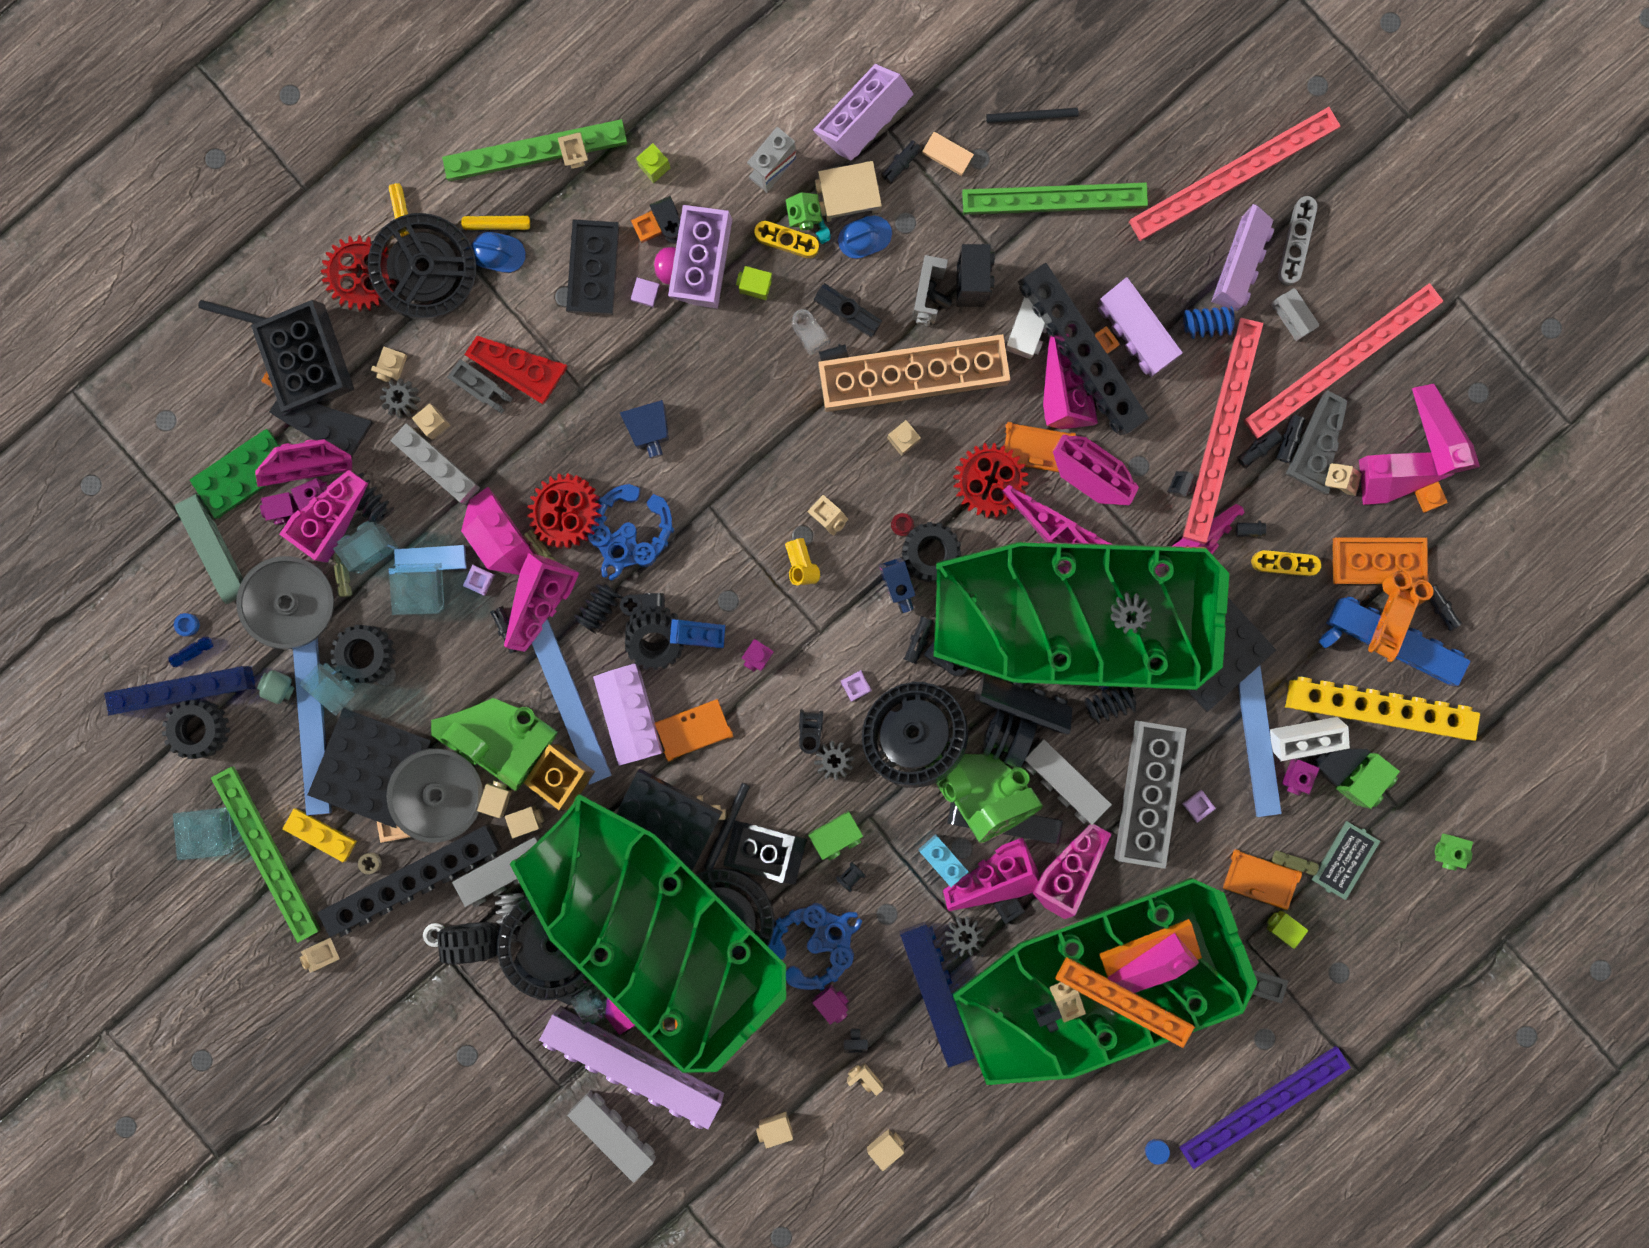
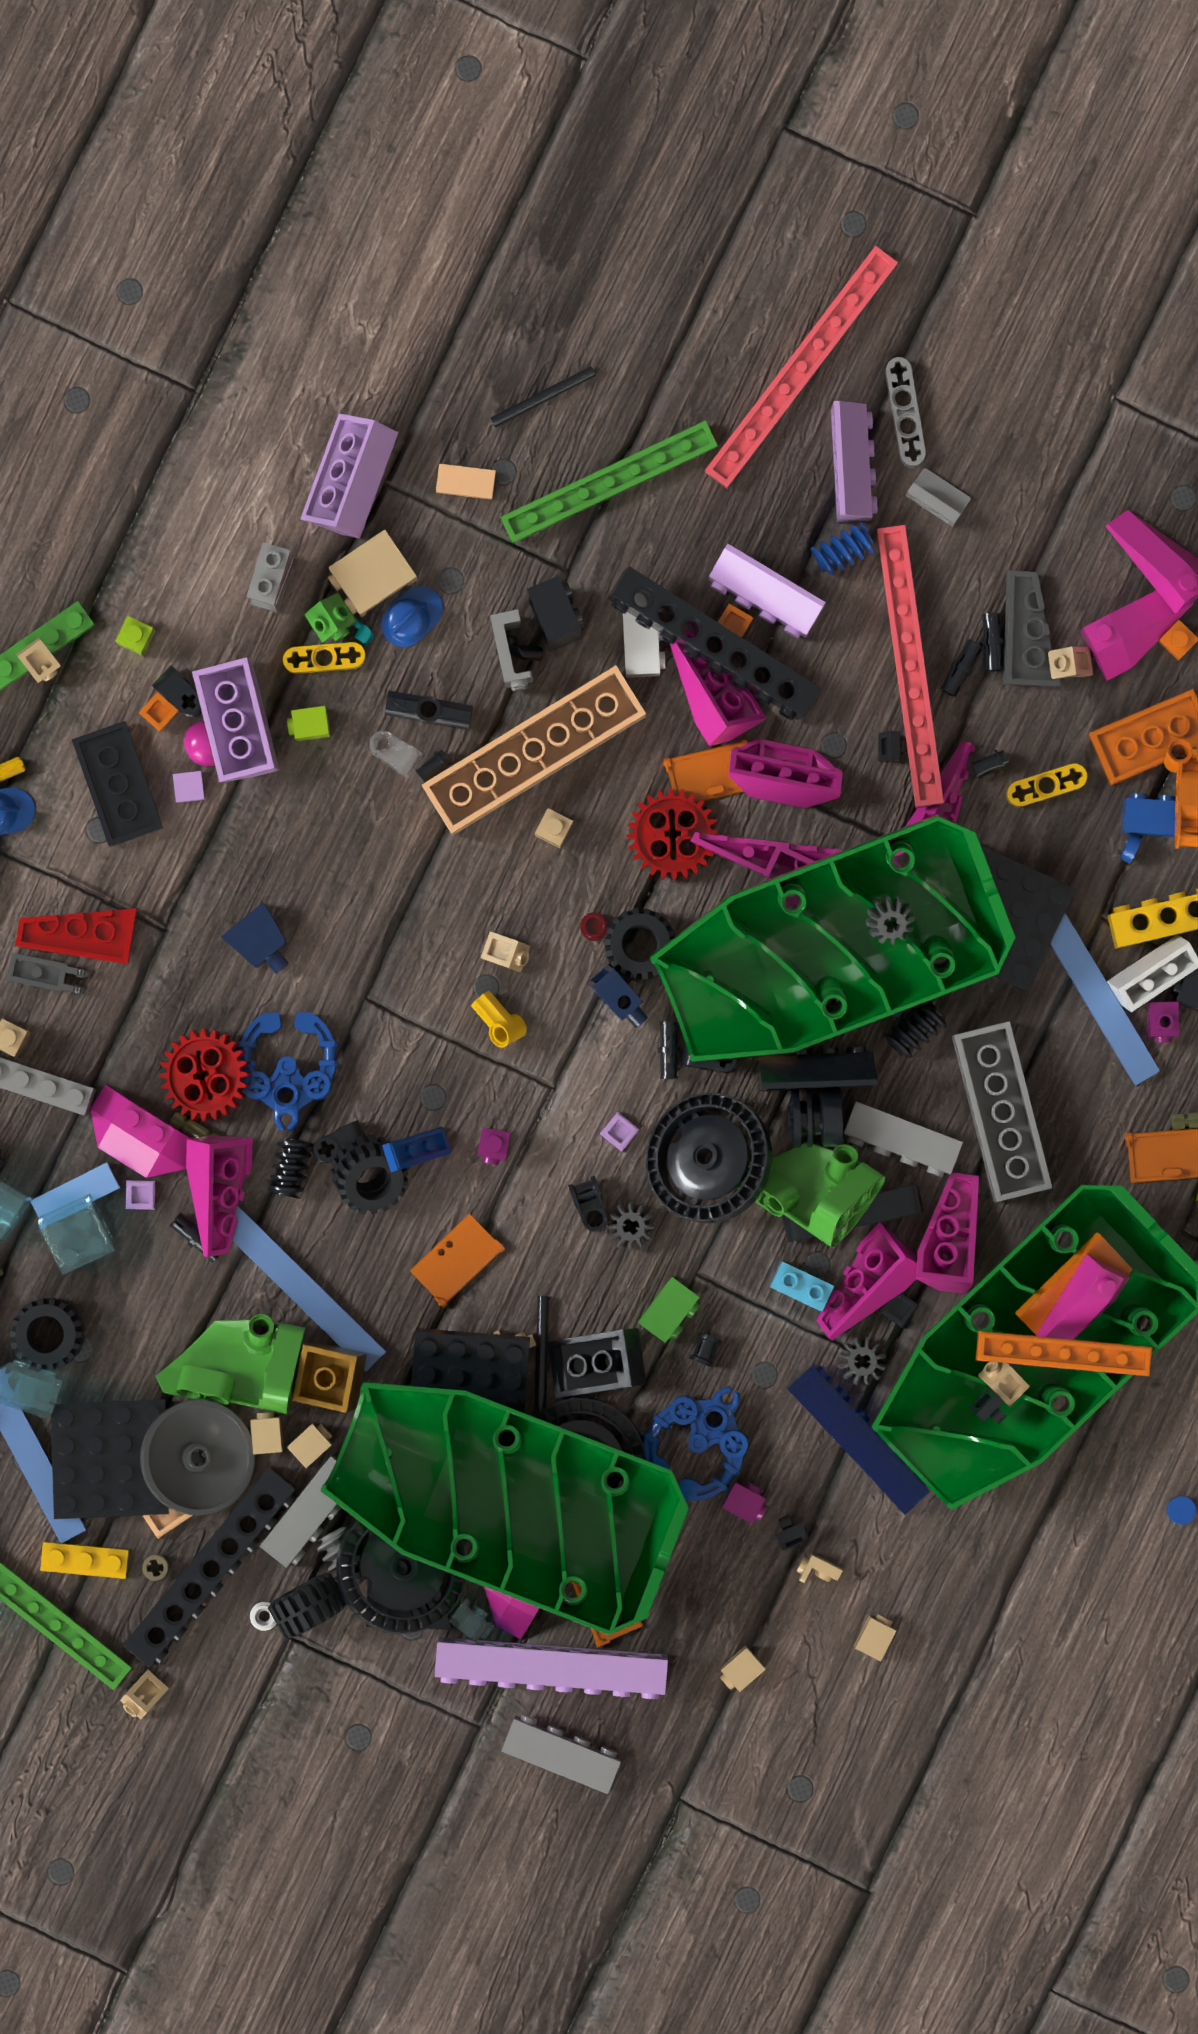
camera: 25 degrees left, 0 degrees up
(628, 714) = (375, 1274): lavender slope -> none
(901, 162) = (417, 514): black pin -> none
(1198, 806) = (1064, 1102): lavender tile -> none
(1343, 360) = (1014, 528): coral plate -> none

